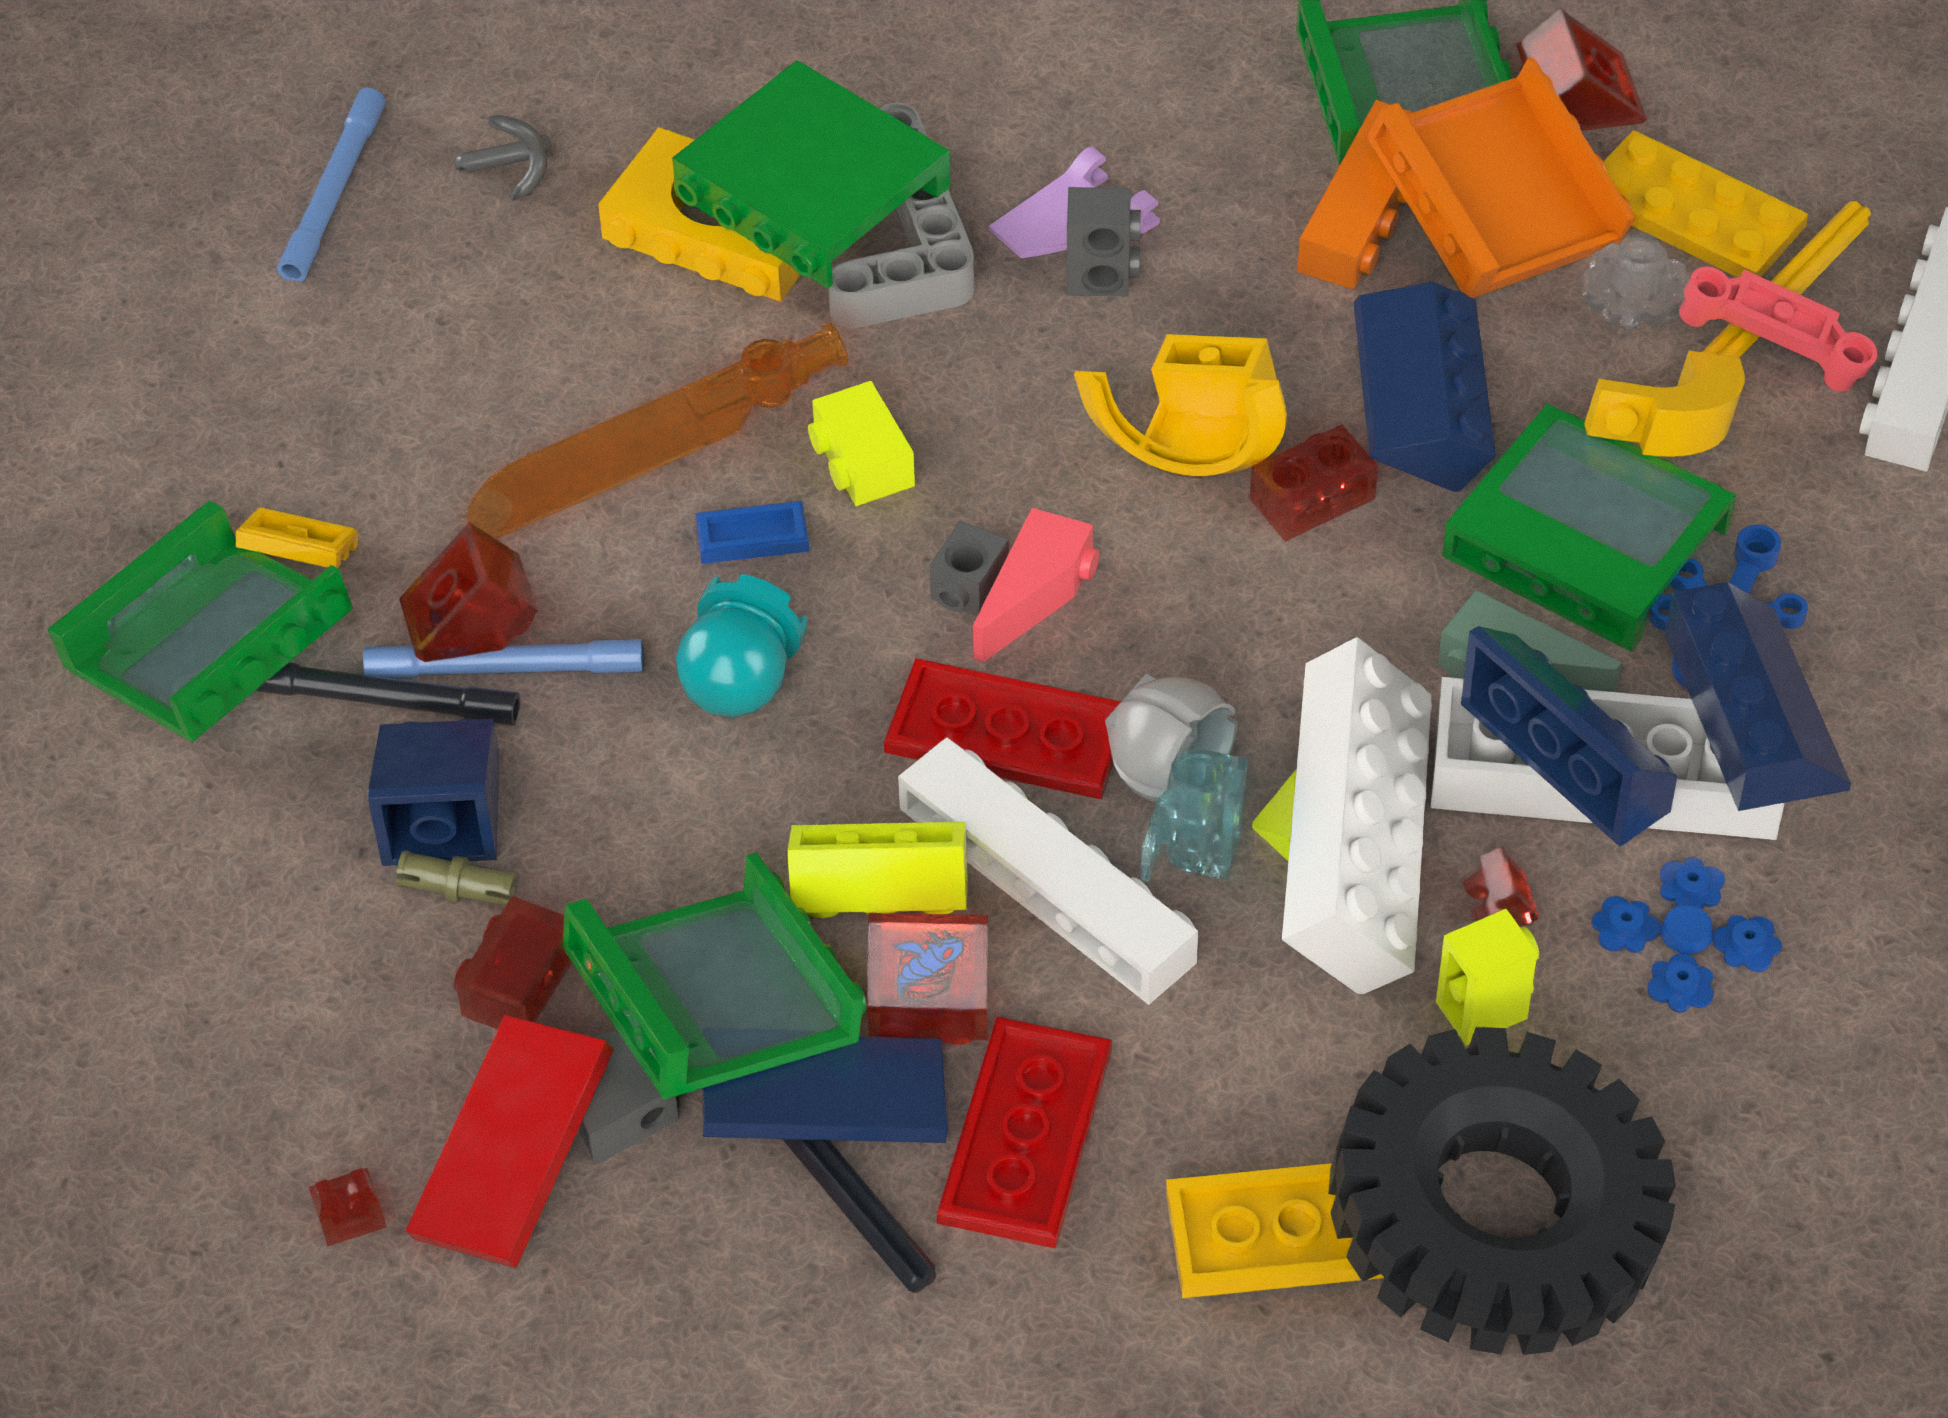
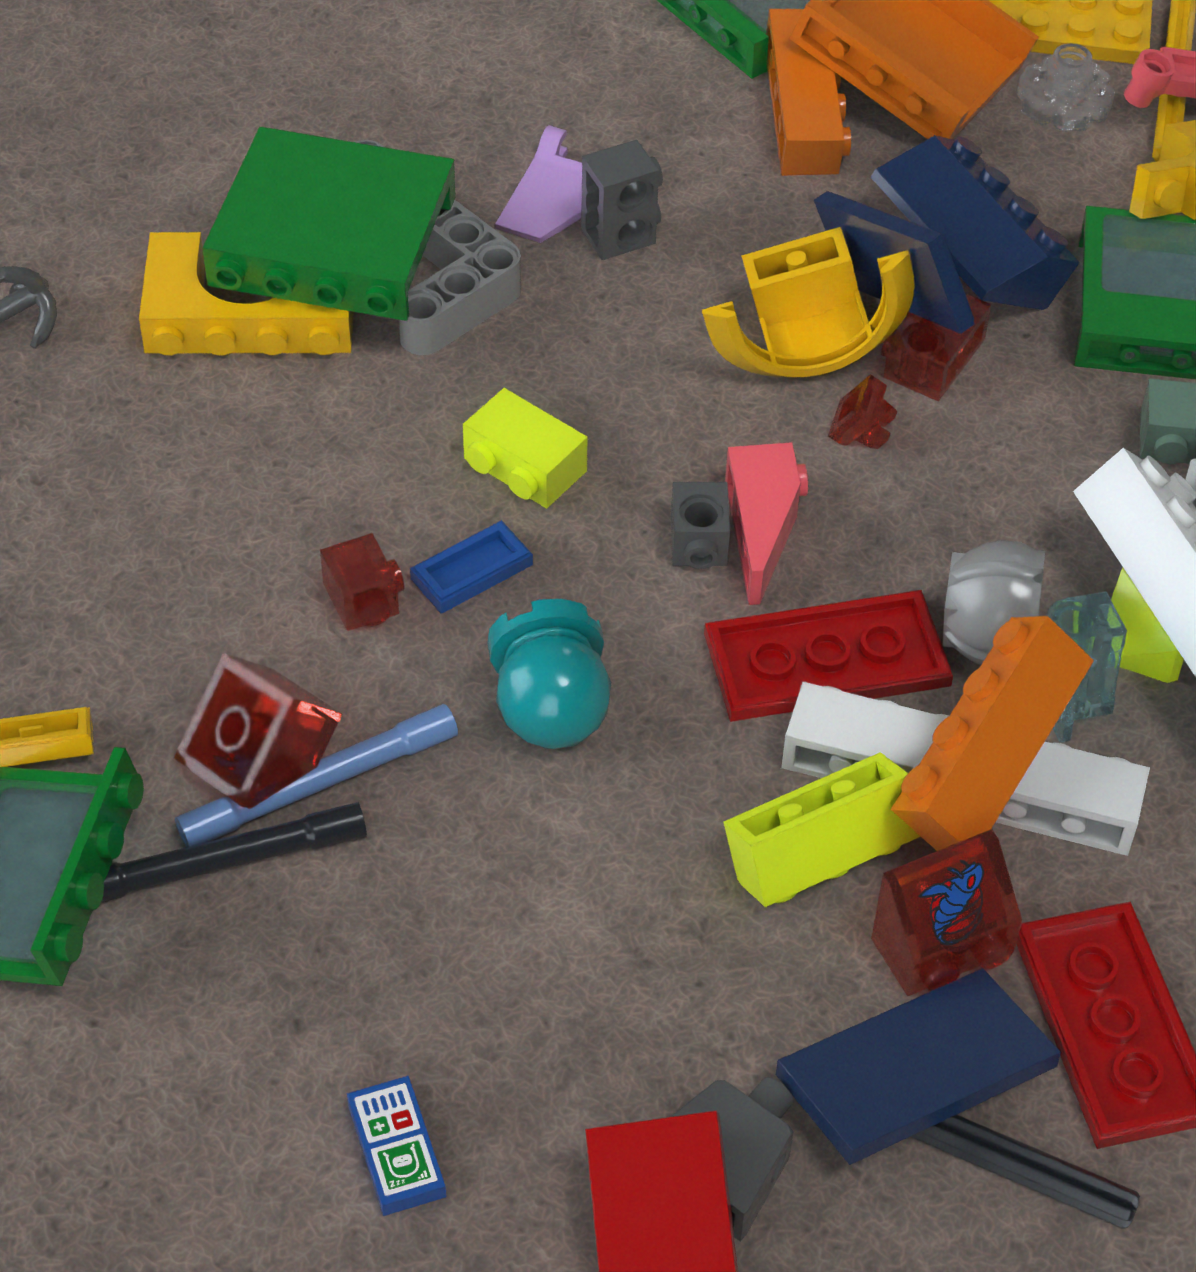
camera: 30 degrees left, 0 degrees up
(373, 974) = (396, 1145): none -> tile
(436, 790) = (349, 930): dark blue slope -> none
(456, 878) = (419, 1011): olive pin -> none
(514, 965) = (542, 1075): clear red brick -> none
(642, 508) = (361, 582): none -> clear red brick
(651, 433) = (313, 516): clear orange piece -> none
(717, 984) = (758, 1004): panel -> none
(1053, 837) = (992, 732): none -> orange brick
(1195, 520) = (863, 414): none -> clear red tile
(1293, 389) = (879, 234): none -> dark blue tile

